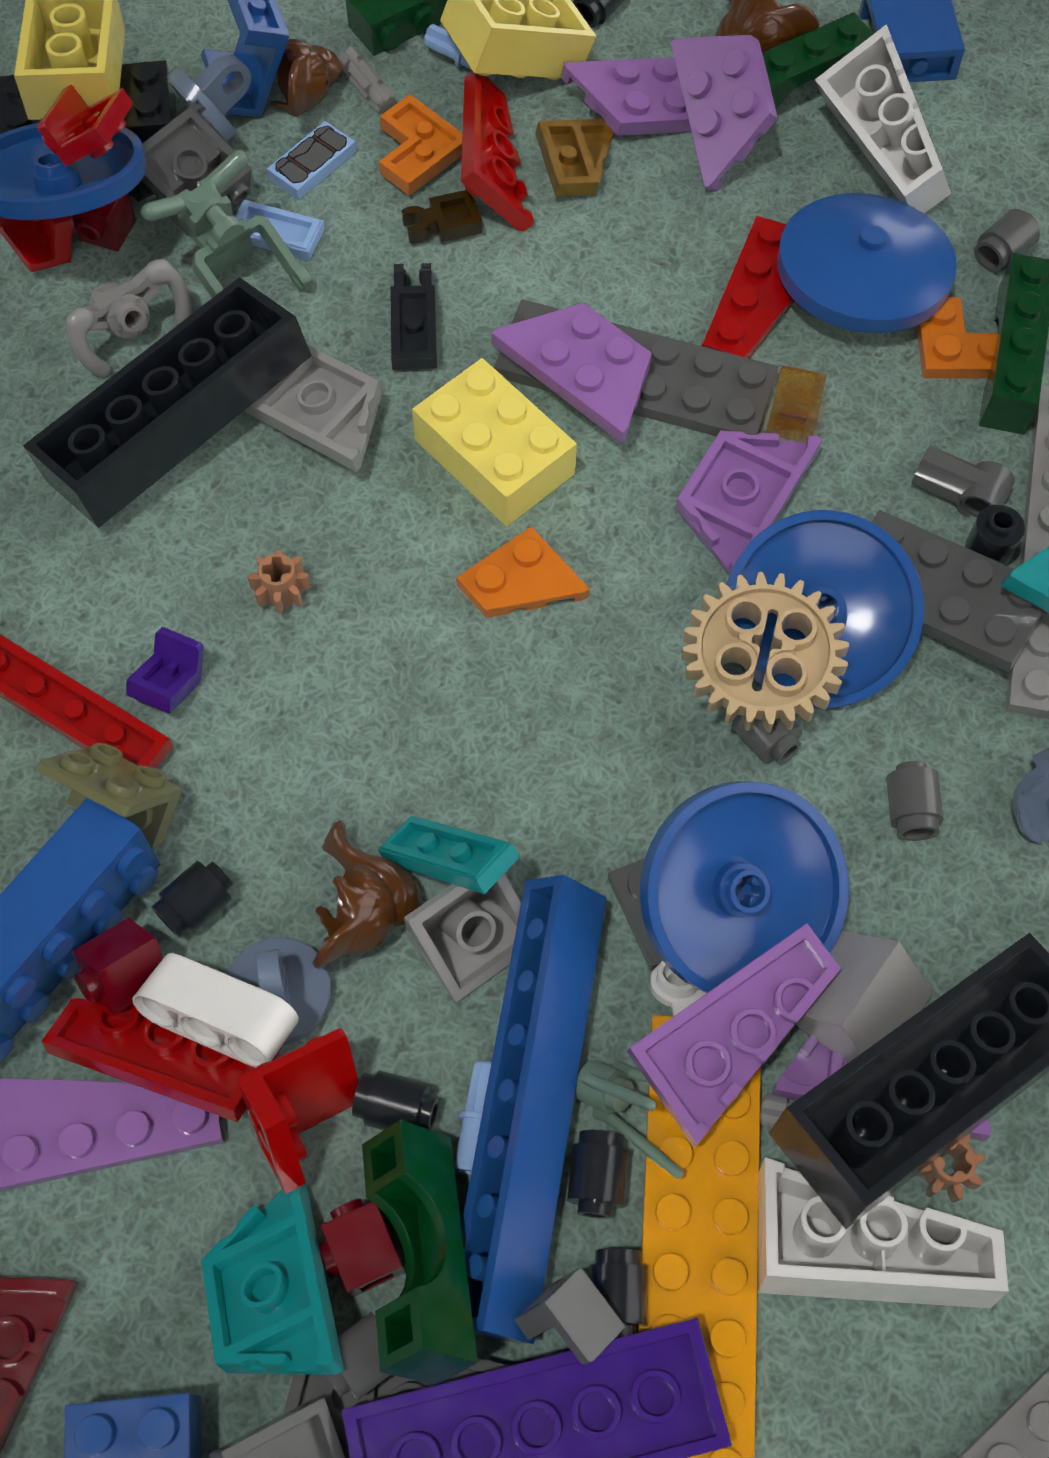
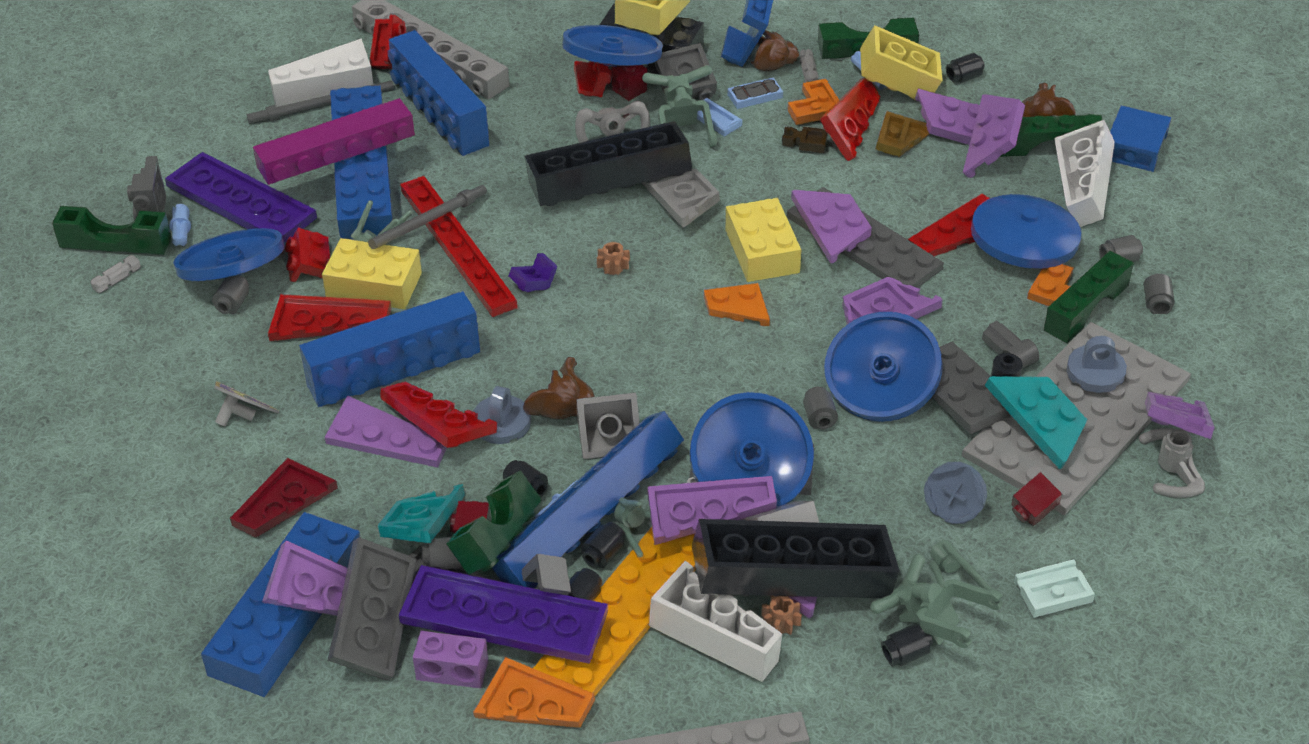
camera: 30 degrees right, 20 degrees down
(79, 130) = (634, 29): red bracket -> none
(116, 964) = (434, 373): dark red brick -> none
(117, 784) = (488, 309): olive bracket -> none
(193, 898) = (485, 365): black brick -> none
(209, 96) = (714, 45): sand blue tile -> none
(216, 1010) = (465, 400): white beam -> none
(296, 1095) = (481, 448): red bracket -> none
(413, 321) = (759, 176): black hinge -> none
(449, 853) = (617, 386): teal tile -> none
(796, 403) = (939, 279): clear orange panel -> none
(810, 661) = (834, 366): tan gear -> none
(914, 801) = (877, 467): dark grey brick -> none

